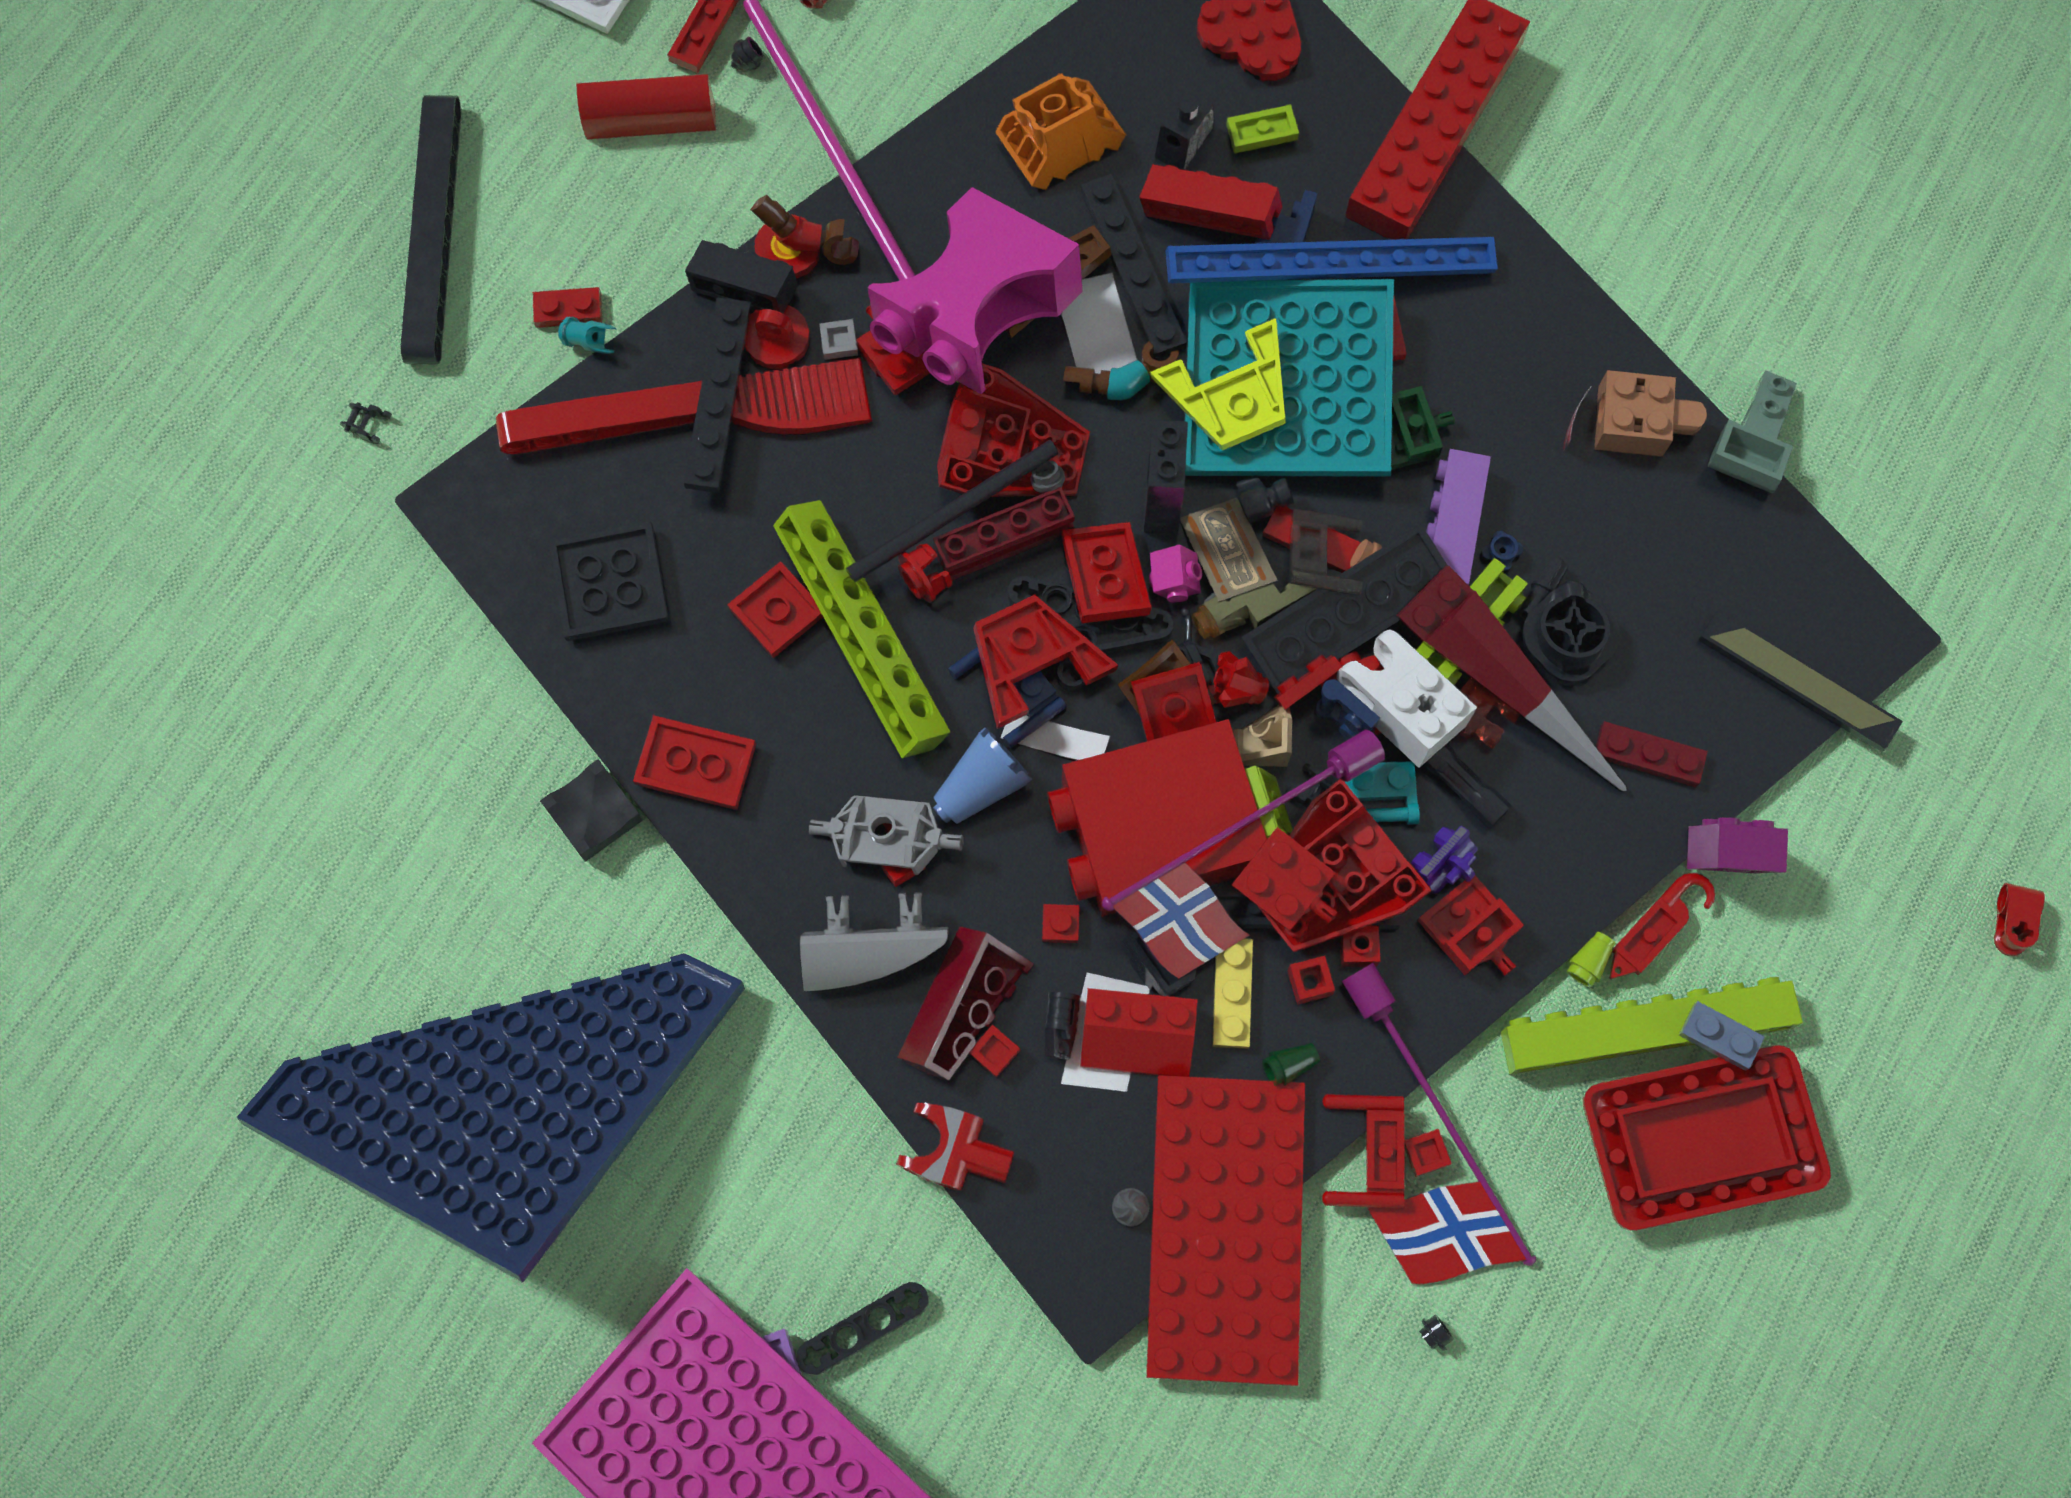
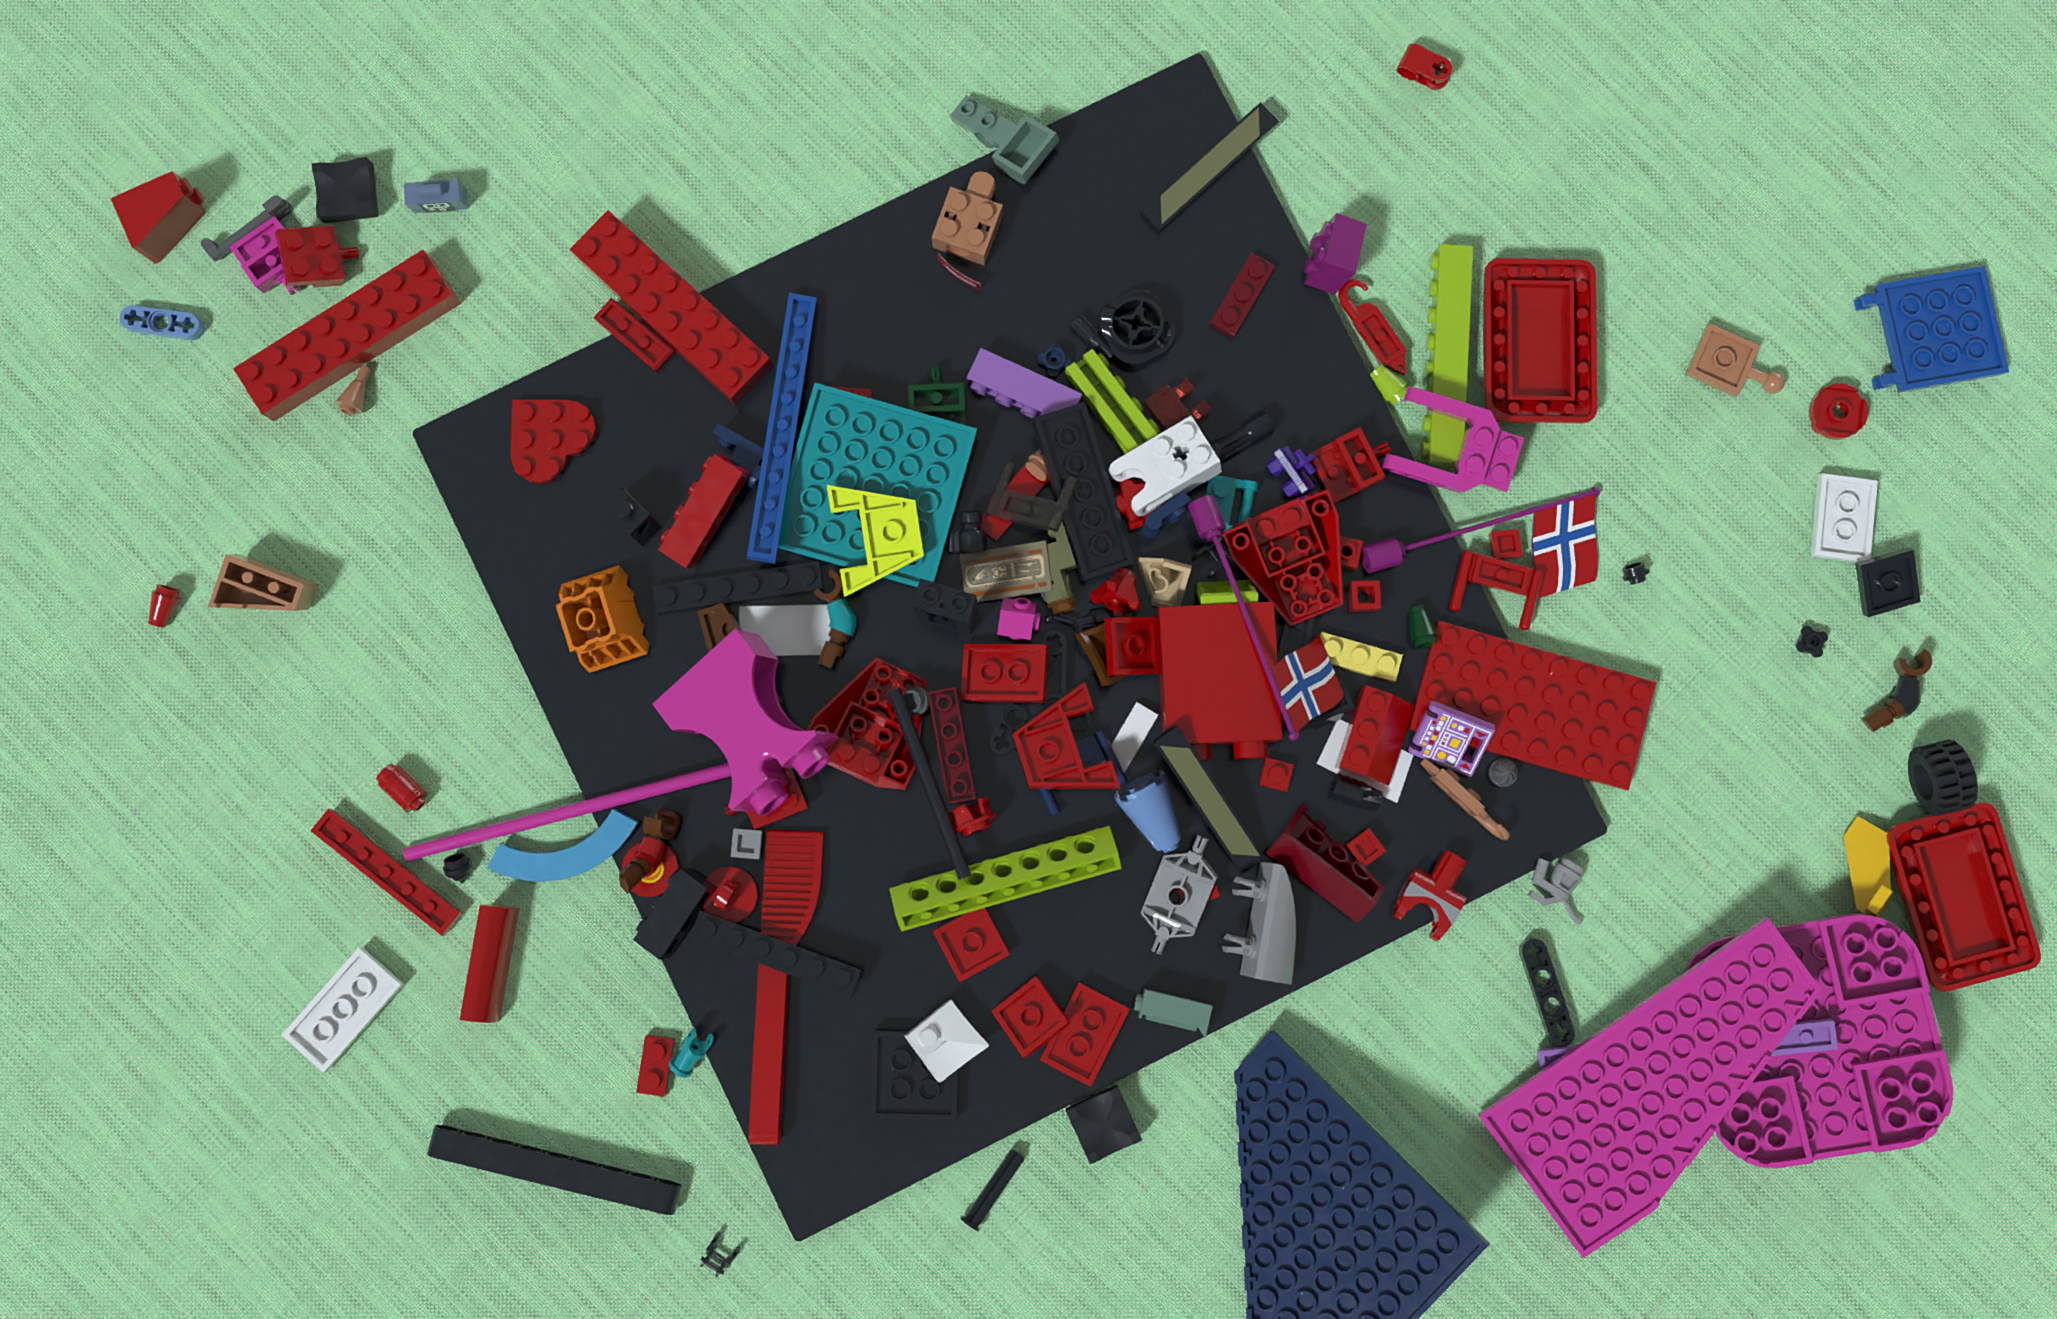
camera: 80 degrees left, 10 degrees up
(491, 702) = (993, 1189): none -> black axle
(654, 600) = (945, 1041): none -> white plate
(701, 693) = (1031, 1017): none -> red plate
(743, 860) = (1173, 1010): none -> sand green window
(777, 164) = (566, 862): none -> dark azure tile
(1008, 836) = (1208, 799): none -> olive tile
(1008, 1318) = (1563, 881): none -> light grey piece
(1085, 1165) = (1467, 799): none -> nougat plate
(1159, 1118) = (1446, 737): none -> medium lavender container
(1262, 128) = (642, 452): lime plate -> none
(1286, 880) = (1297, 595): red plate -> none
(1319, 671) = (1133, 535): red plate -> none
(1395, 90) = (634, 335): none -> red tile
(1467, 634) = (1126, 407): dark red plate -> none
(1529, 1090) = (1484, 456): none -> dark pink plate
(1721, 1036) = (1472, 307): sand blue plate -> none
(1755, 1397) = (1726, 361): none -> nougat plate

